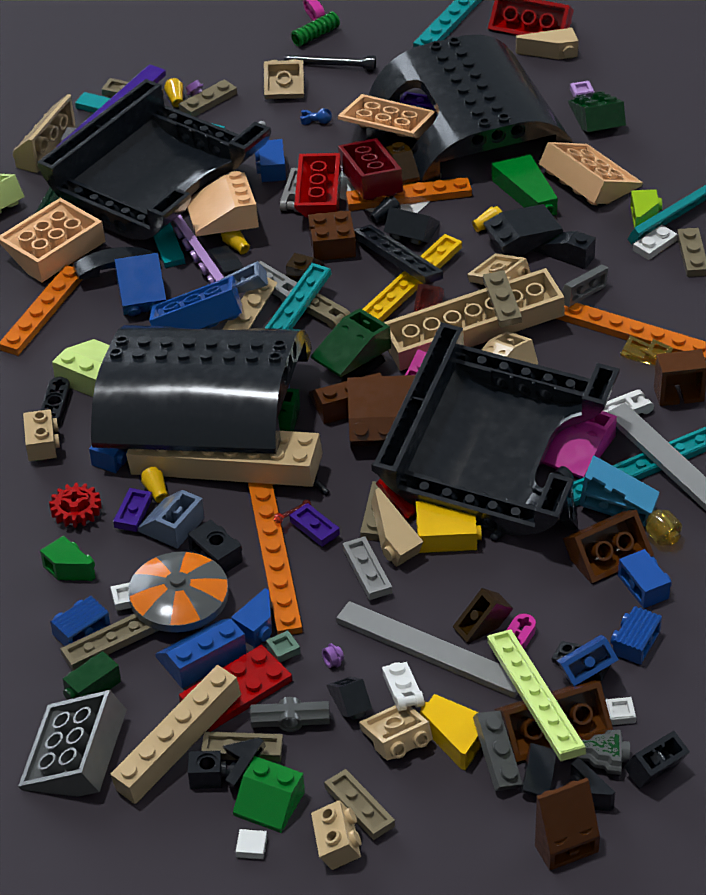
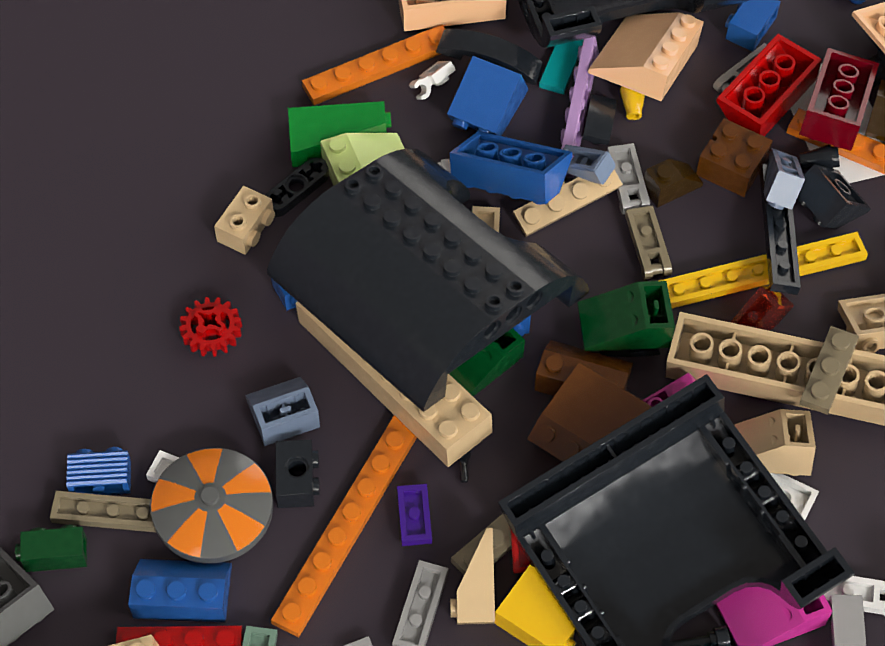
camera: 35 degrees right, 15 degrees up
(34, 363) = (318, 123): none -> green slope
(66, 561) = (147, 386): green slope -> none
(89, 294) = (435, 75): none -> white plate
(133, 509) = (259, 369): dark purple plate -> none
(153, 481) = (305, 351): yellow cone -> none
(255, 619) = (261, 591): blue slope -> none
(278, 518) = (383, 482): clear red hinge -> none
(300, 297) = (617, 224): teal tile -> none
(378, 225) = (783, 180): none -> sand blue slope

